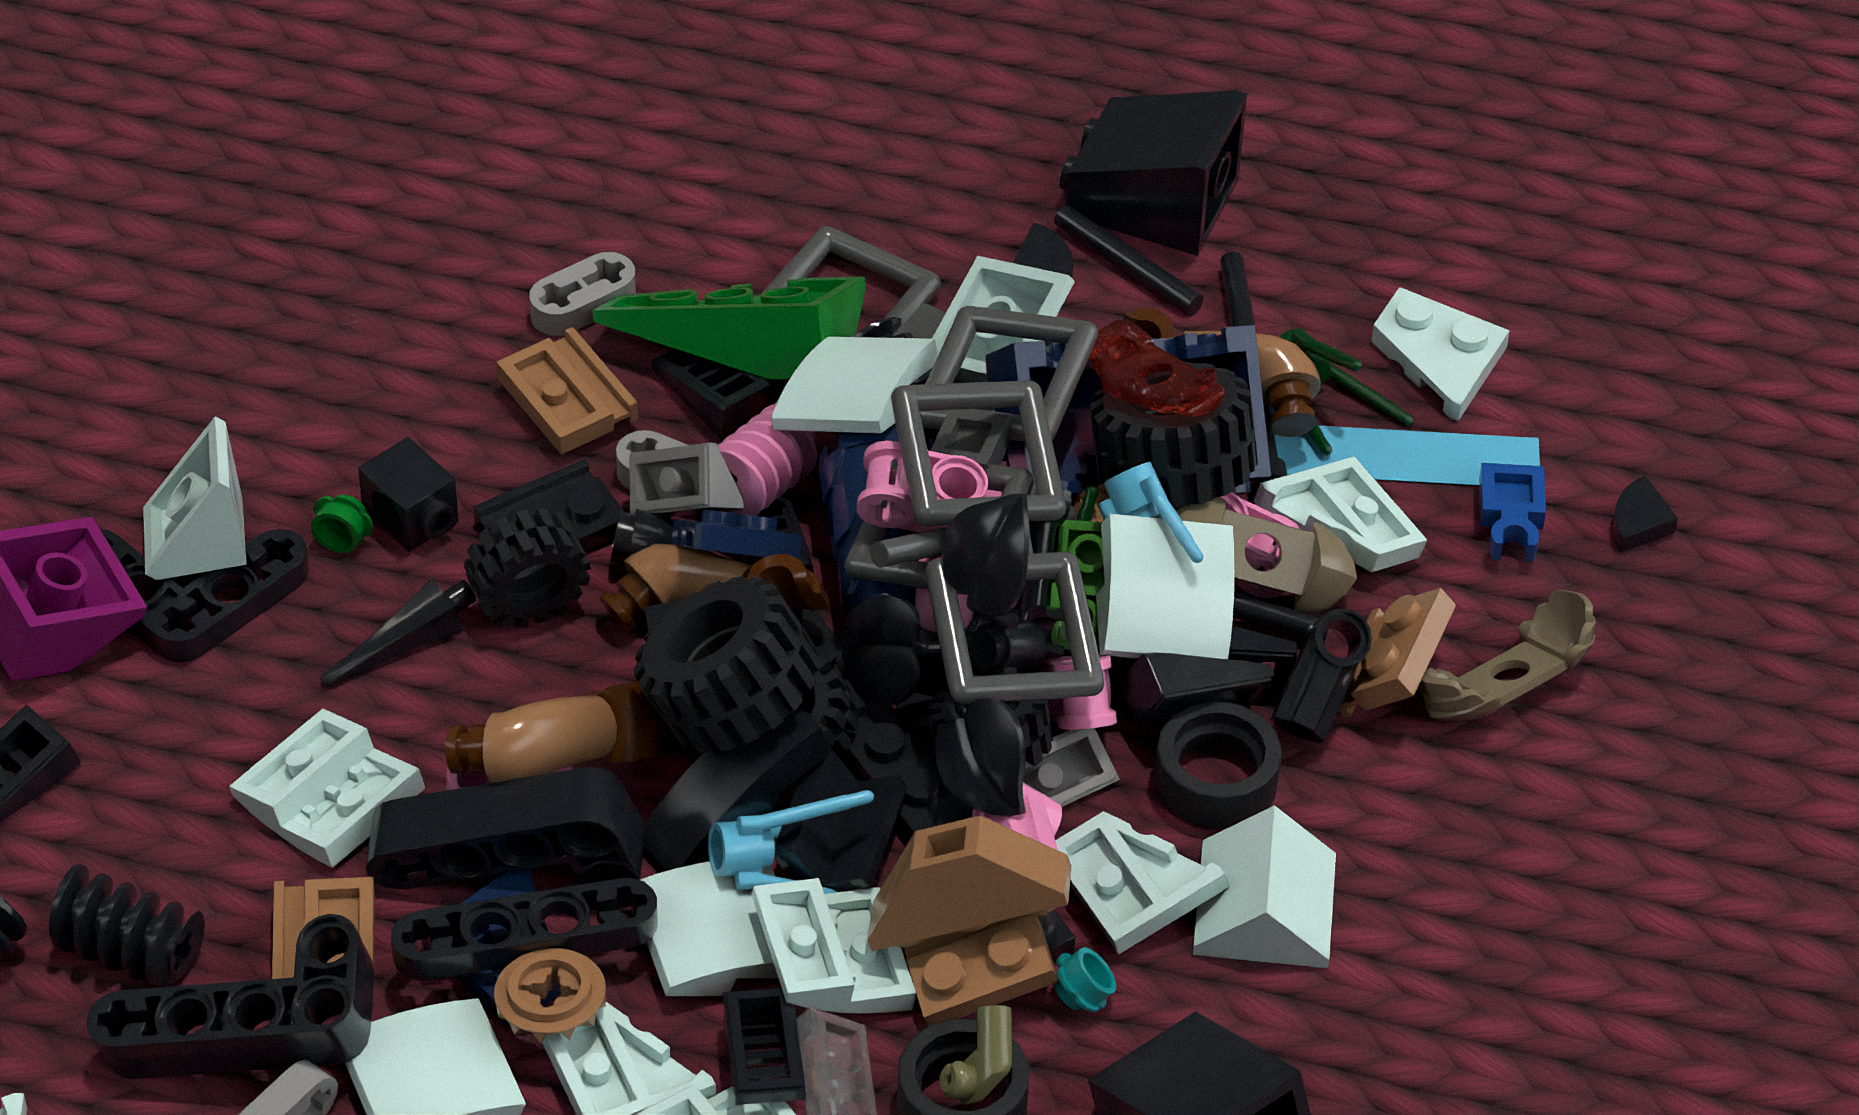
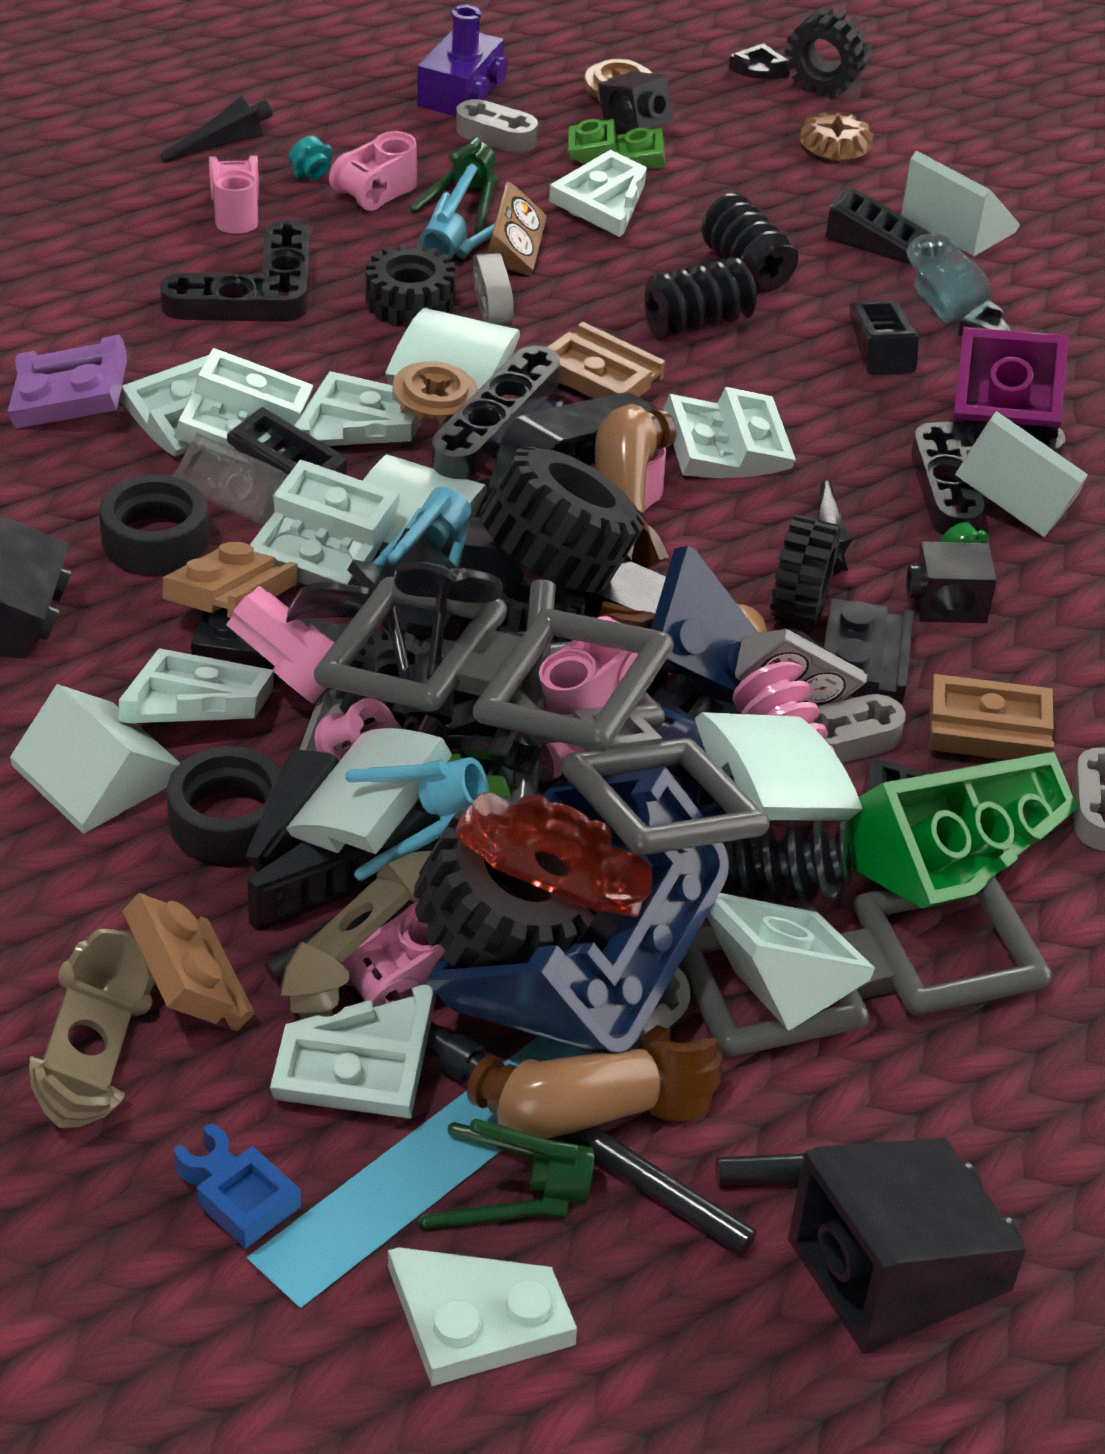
camera: 130 degrees right, 5 degrees down
(147, 1028) = (550, 296): black beam -> none
(964, 880) = (255, 545): medium nougat slope -> none
(988, 1064) = (146, 506): olive arm -> none
(1045, 251) = (879, 1105): black tile -> none
(1084, 980) = (139, 617): teal plate -> none
(1320, 678) = (220, 897): black piece -> none
(1641, 516) = (124, 1288): black tile -> none

